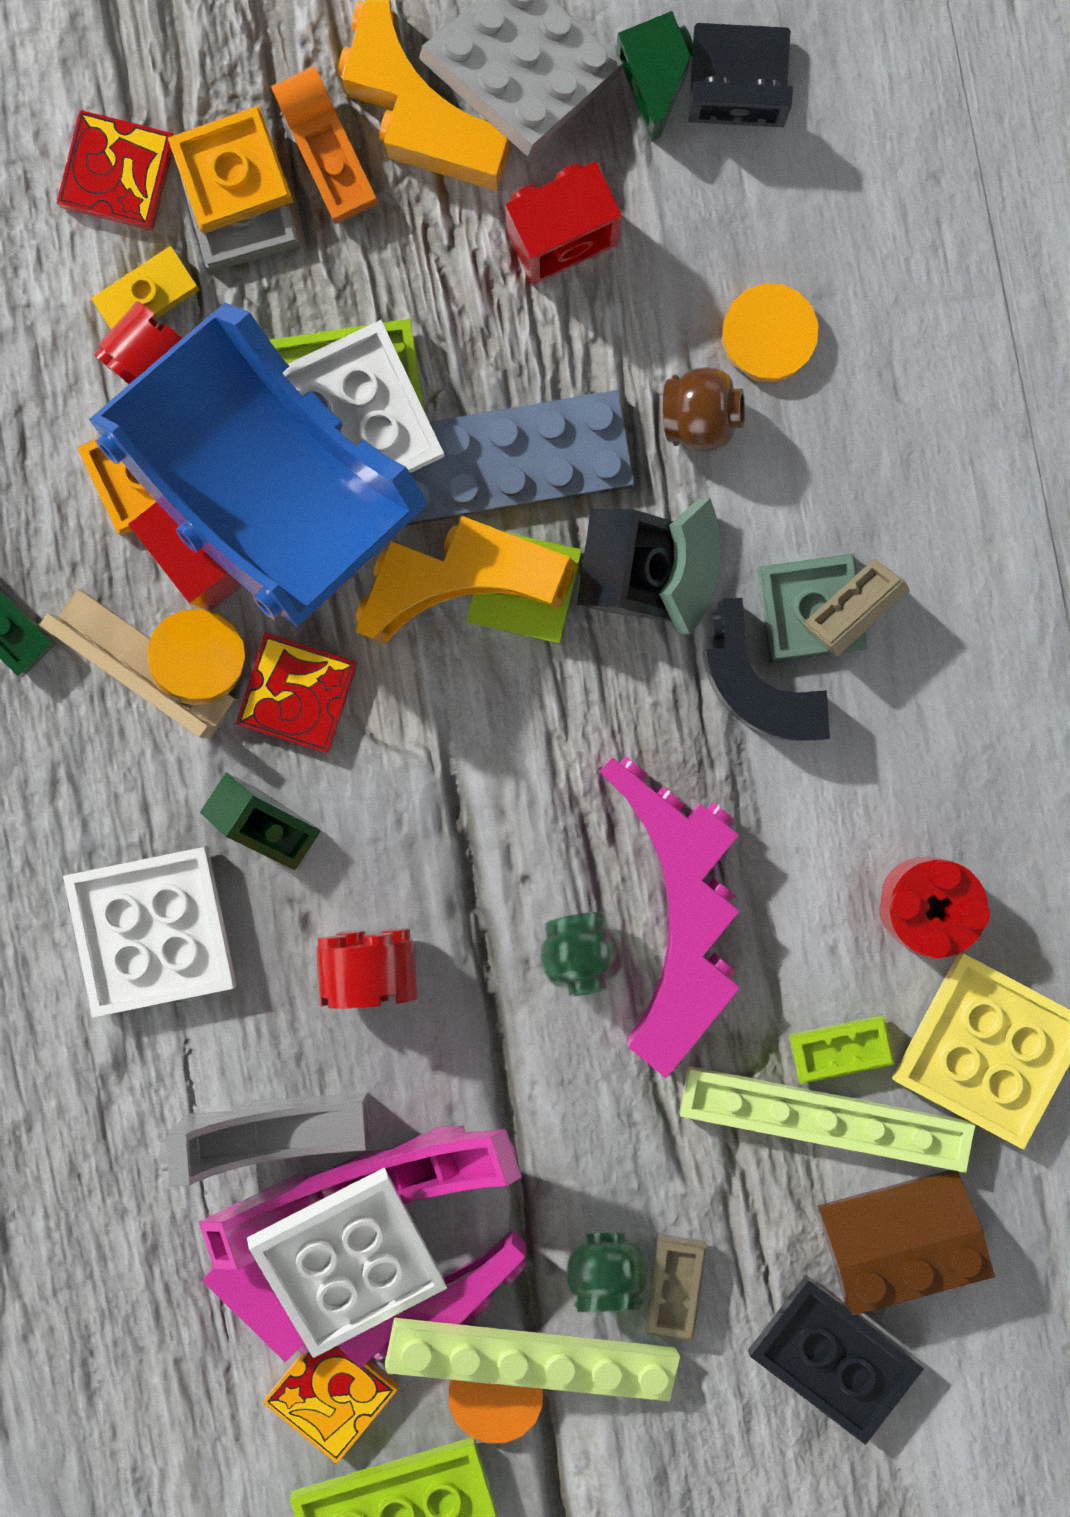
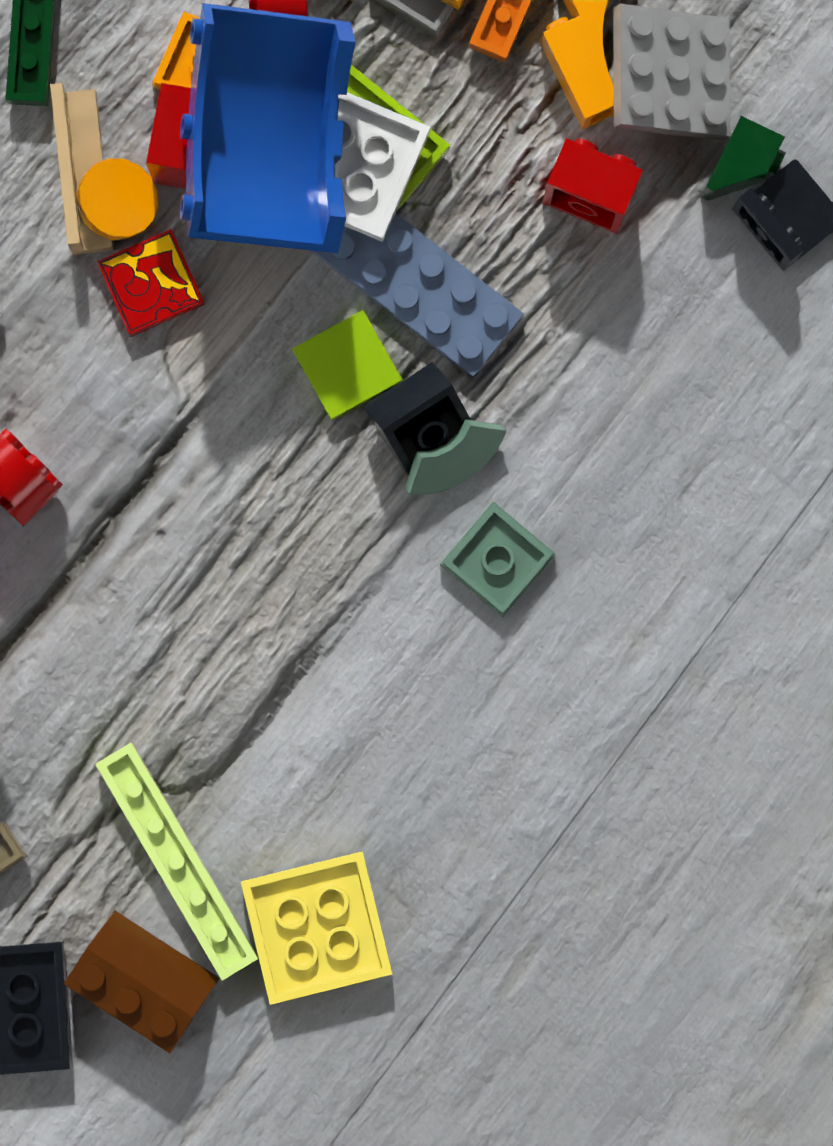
camera: 50 degrees right, 5 degrees down
(259, 821) = (47, 331): dark green slope -> none
(475, 563) = (331, 319): light orange arch -> none
(580, 953) = (143, 605): clear green piece -> none
(690, 985) = (271, 614): dark pink arch -> none
(702, 409) = (556, 375): reddish brown piece -> none
(747, 697) = (408, 594): black arch -> none
(769, 332) = (647, 377): light orange tile -> none
(841, 1049) = (230, 830): lime plate -> none
(856, 607) = (519, 582): dark tan plate -> none
(961, 906) = (360, 784): red brick -> none

